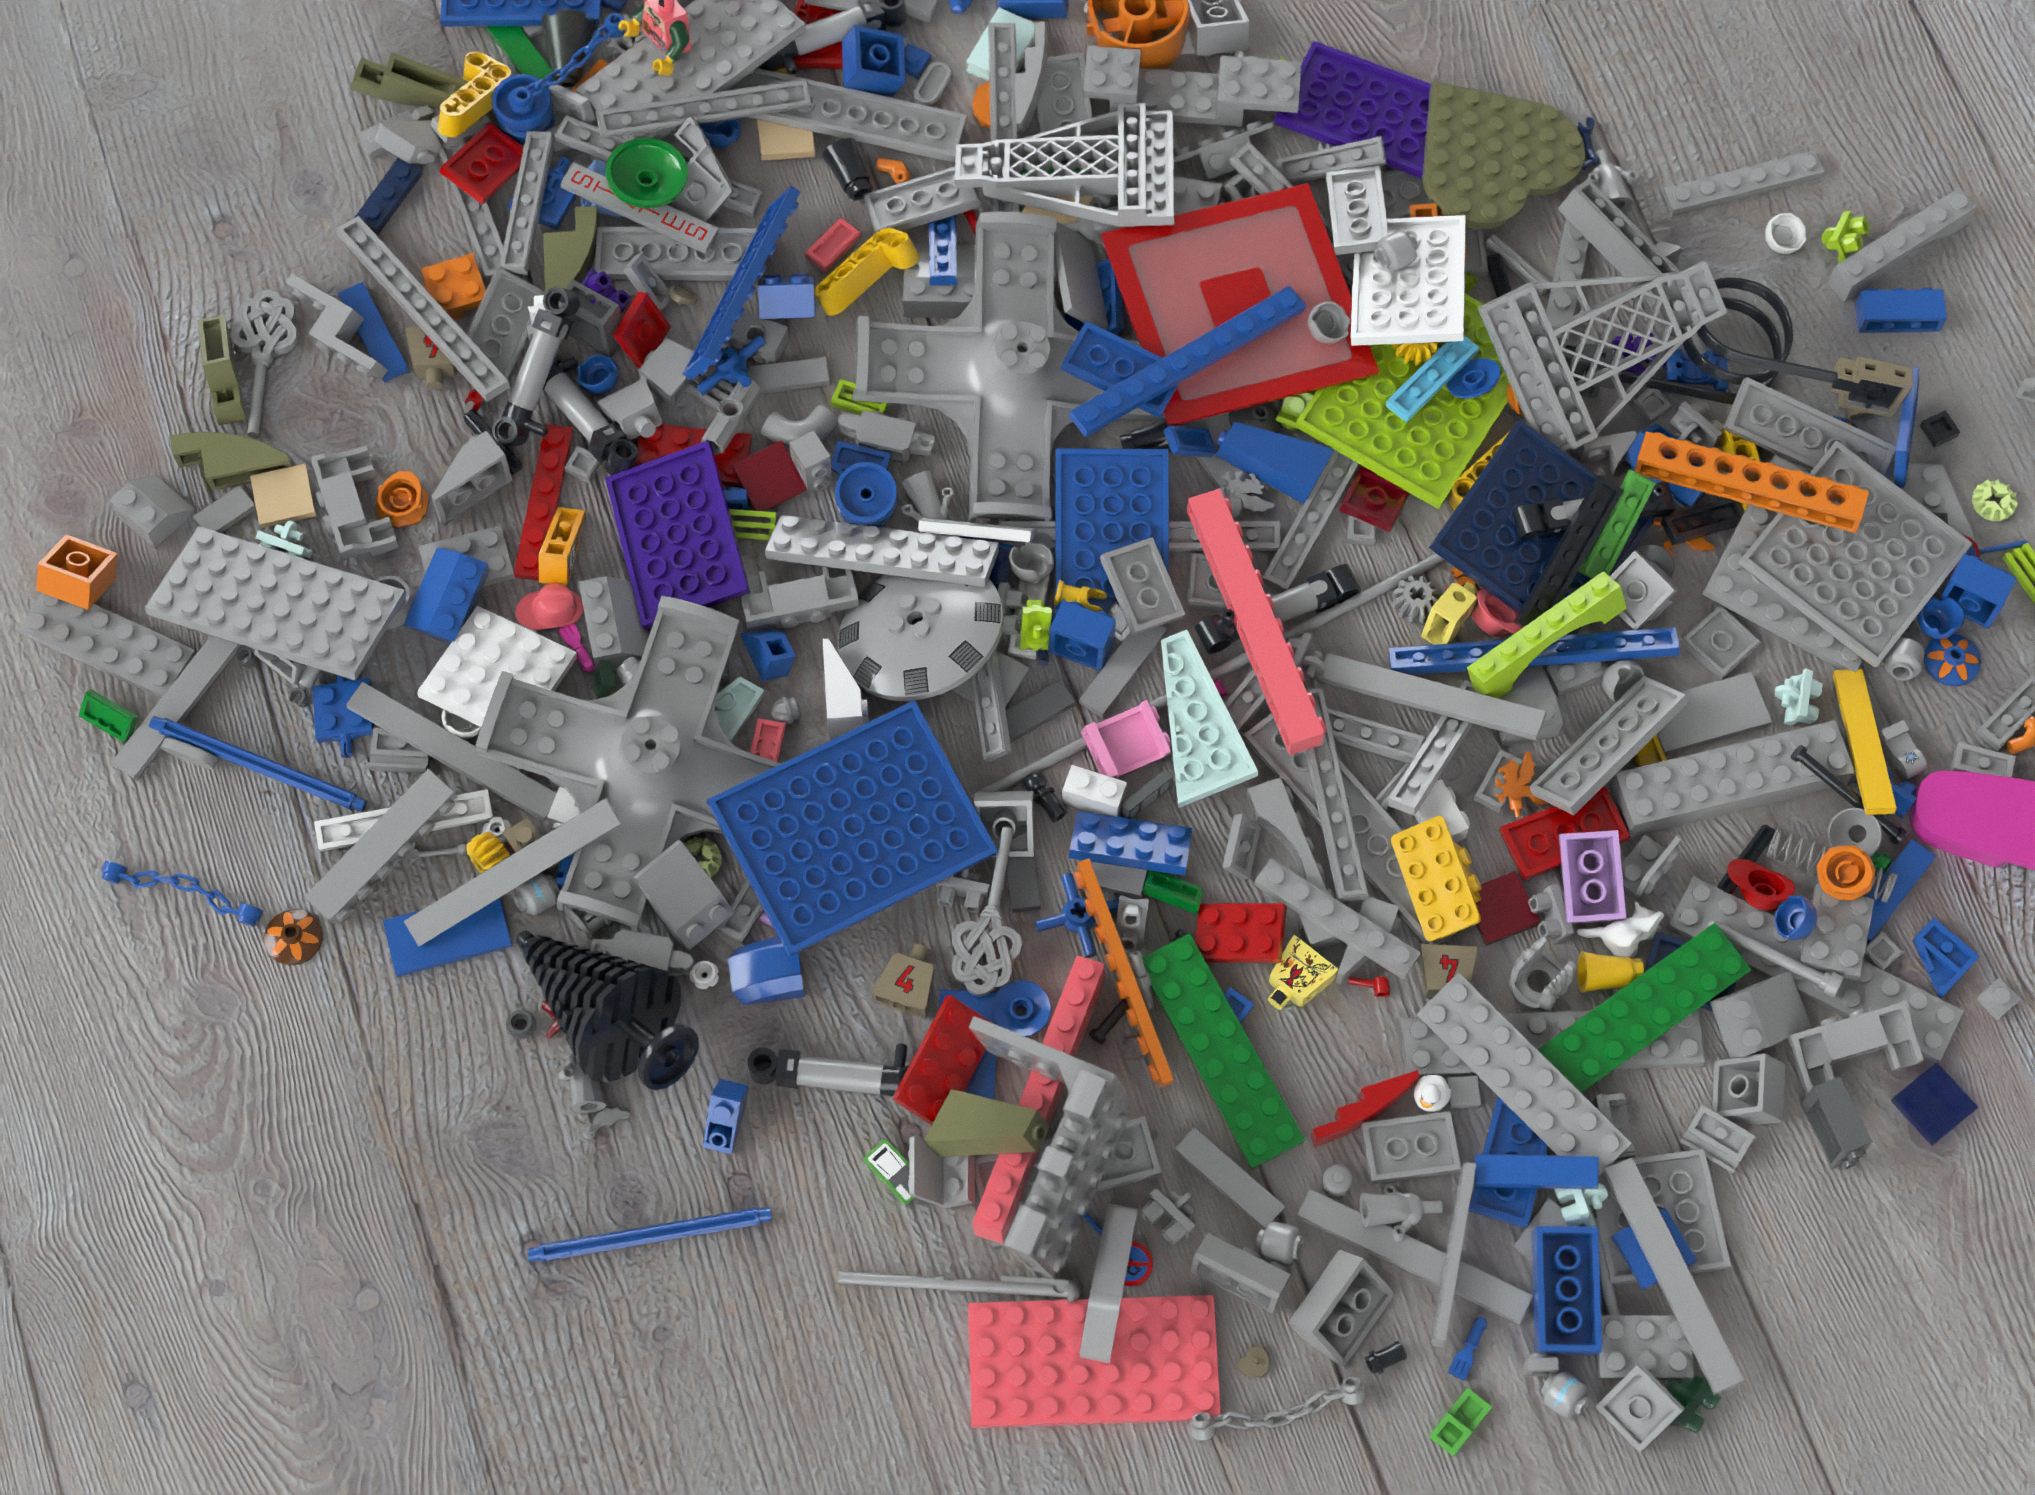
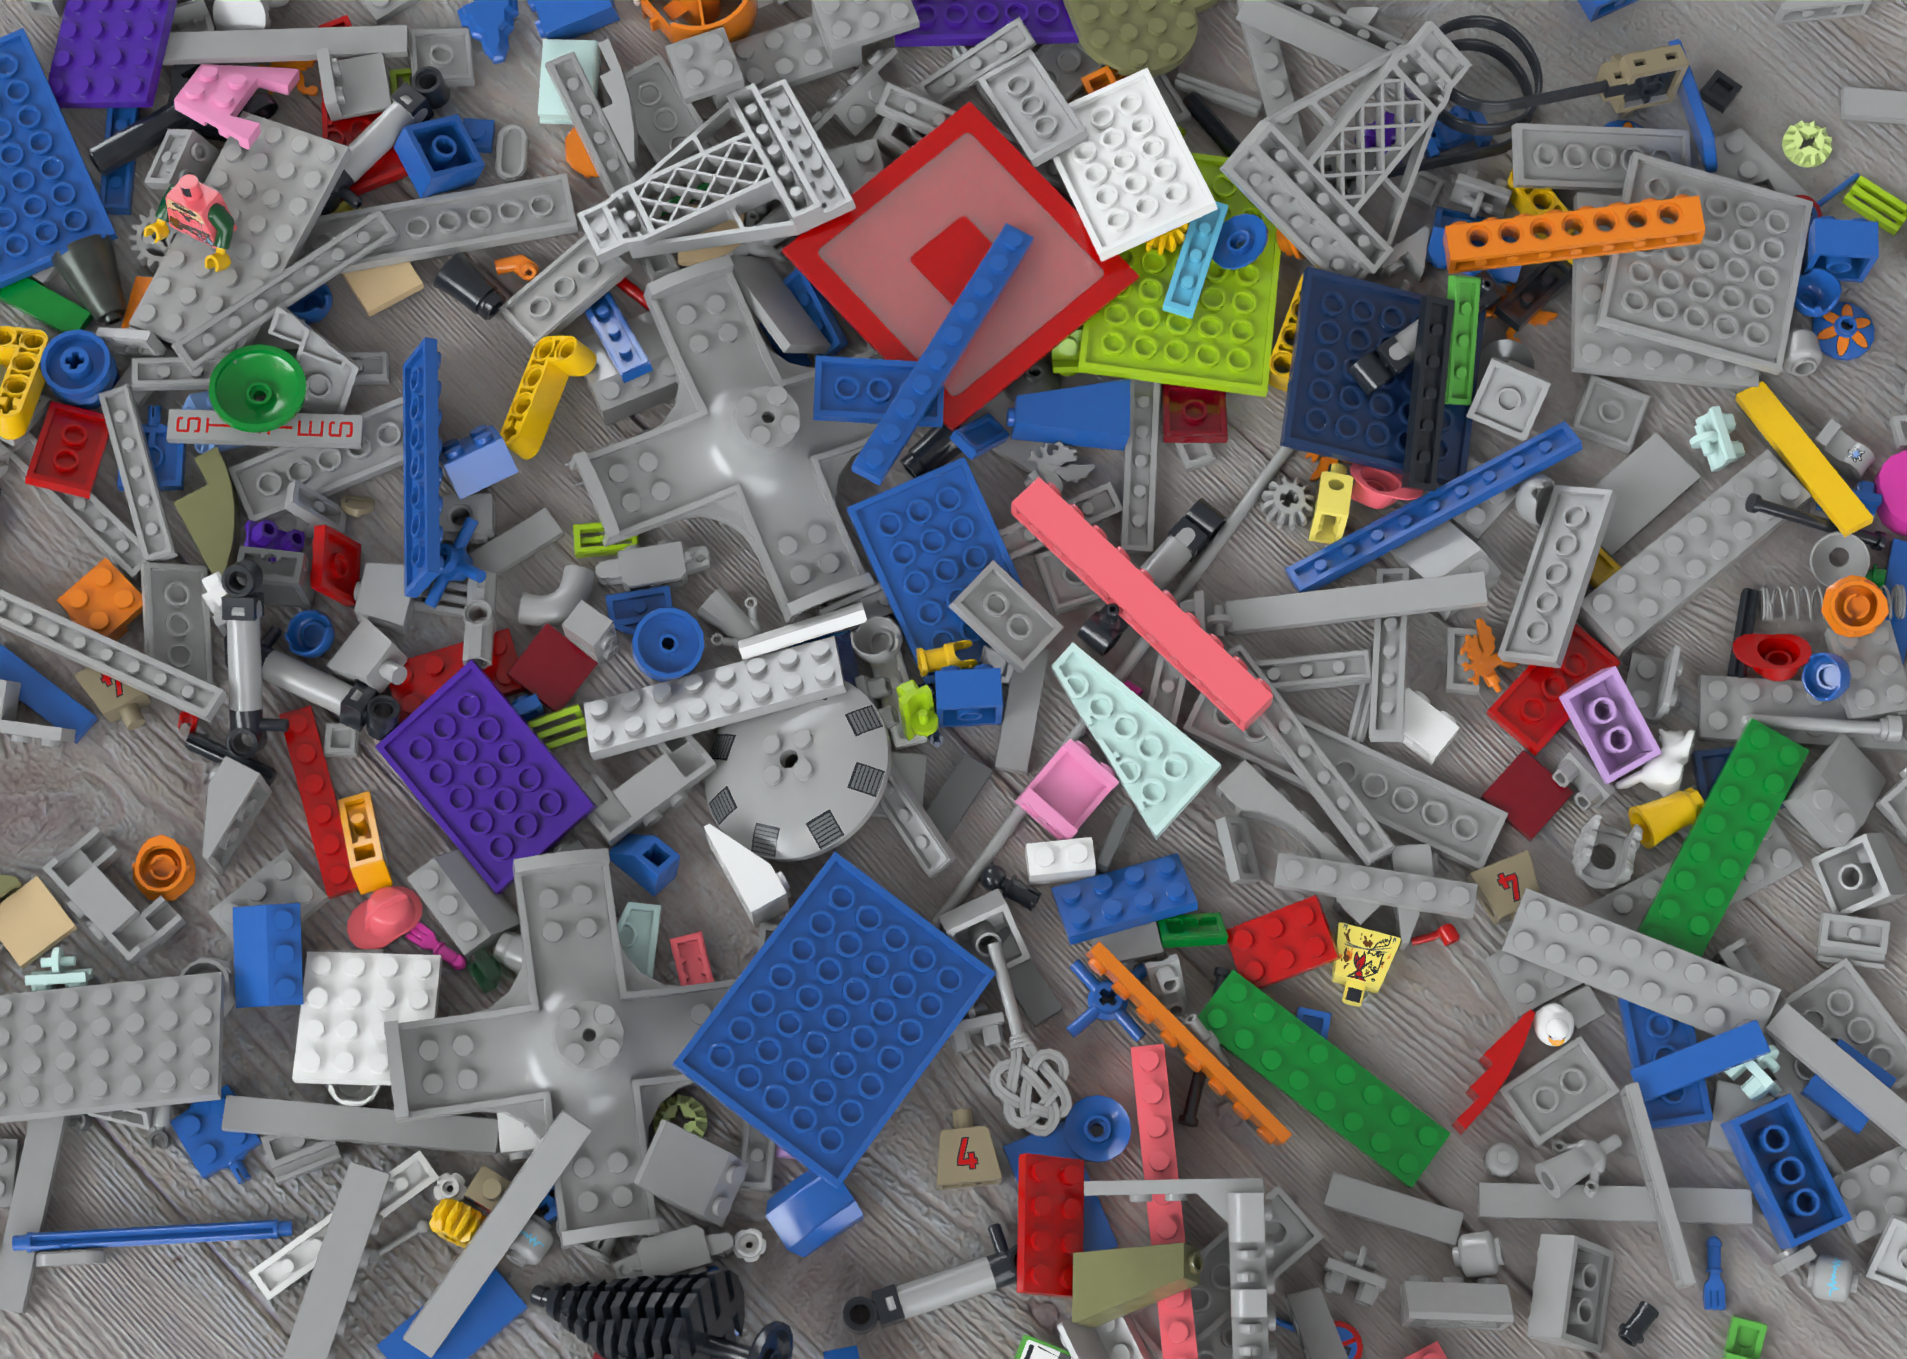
camera: 25 degrees left, 5 degrees up
(525, 105) = (136, 241): blue piece -> none
(785, 710) = (694, 917): light grey plate -> none
(832, 245) = (492, 379): coral plate -> none
(1328, 323) = (1066, 247): light grey hair -> none
(1396, 250) = (1100, 138): light grey head -> none
(1438, 878) = (1454, 796): yellow bracket -> none
(1499, 668) = (1414, 541): lime arch -> none

